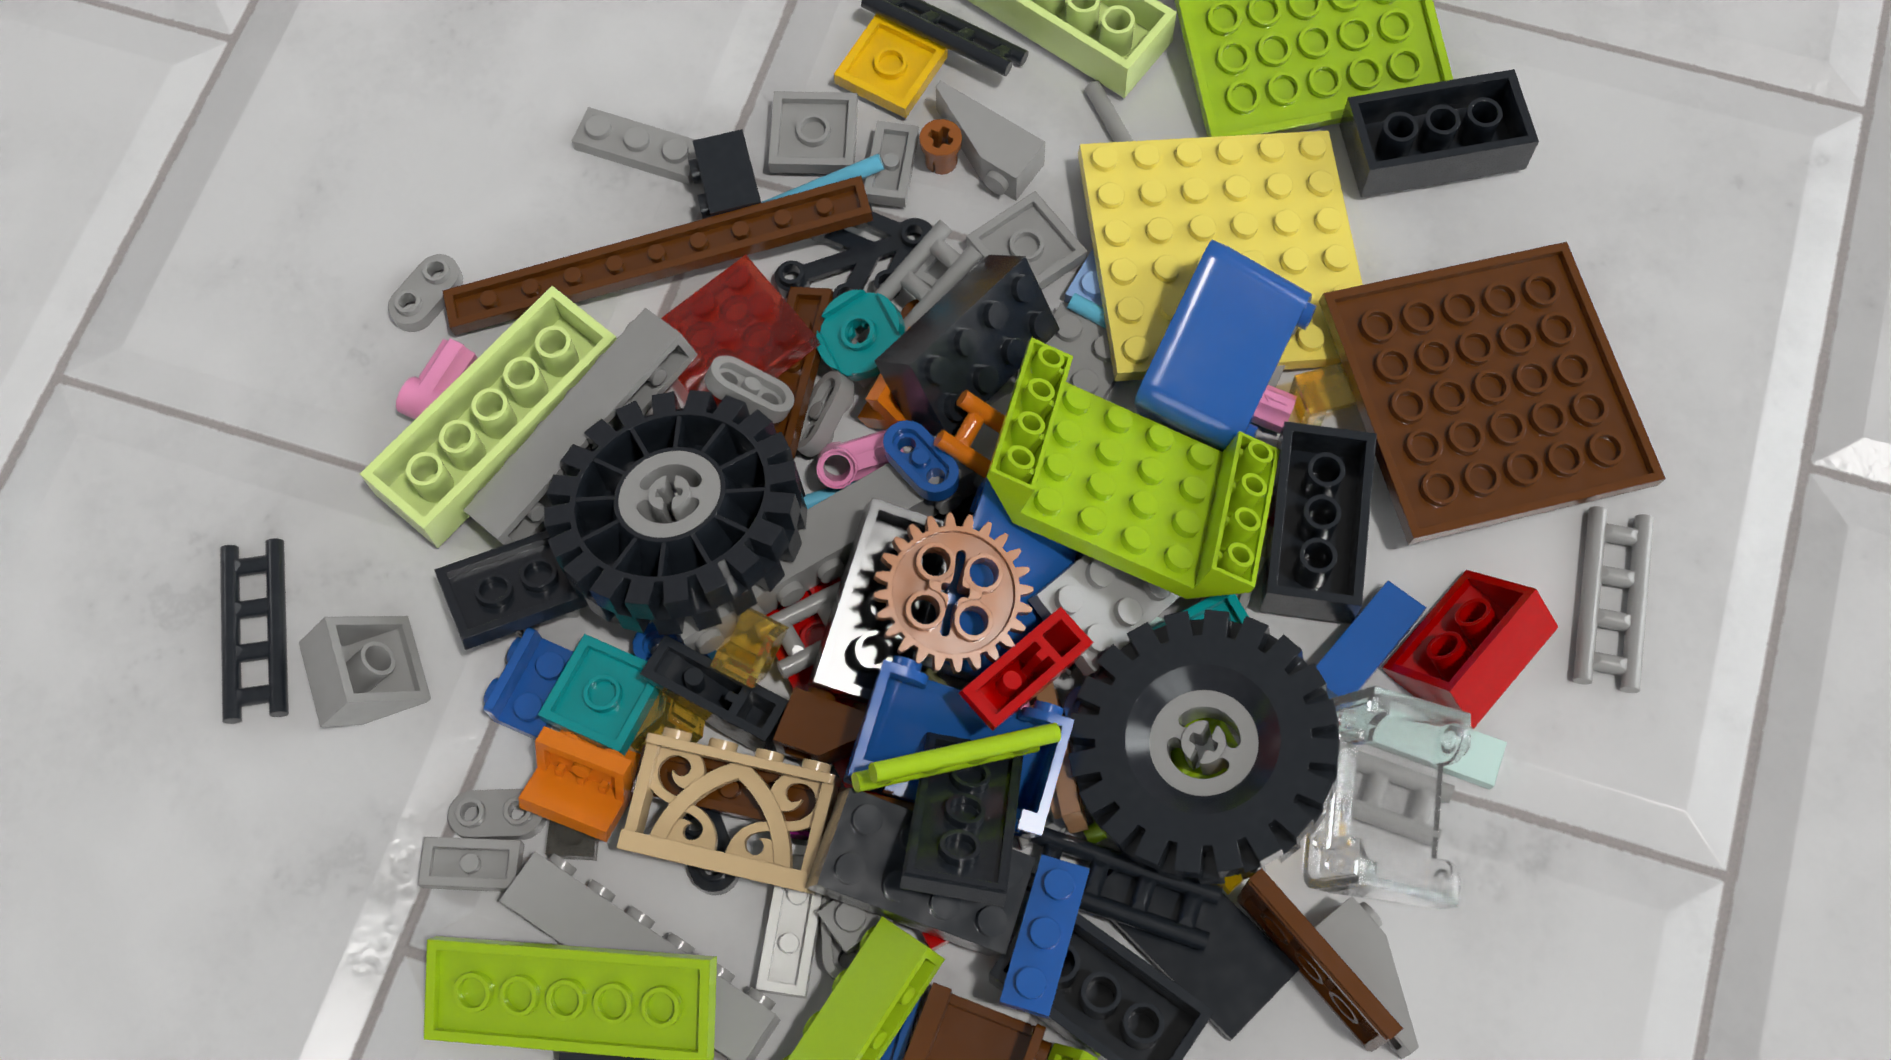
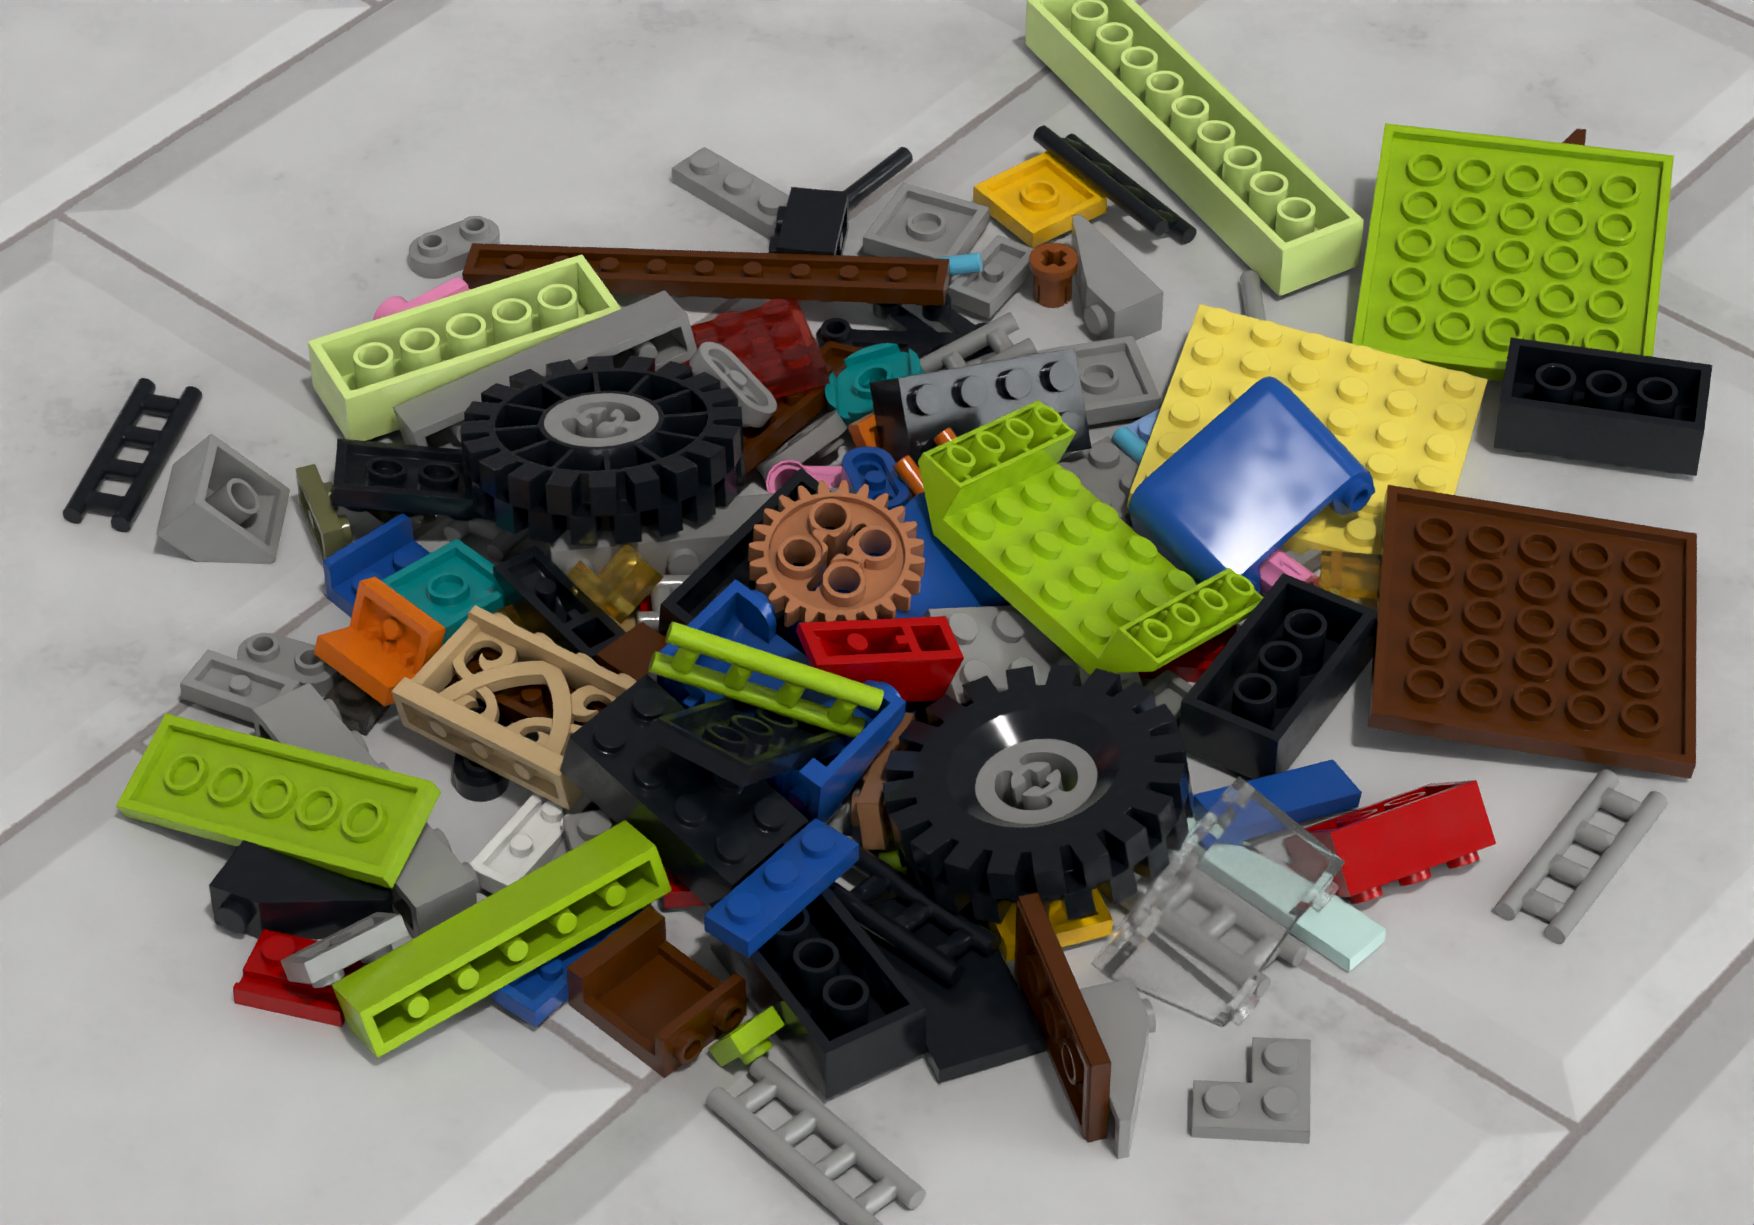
camera: 20 degrees right, 25 degrees down
(443, 631) = (315, 501): none -> olive plate
(741, 91) = (878, 176): none -> black bar
(1498, 954) = (1268, 1108): none -> light grey plate

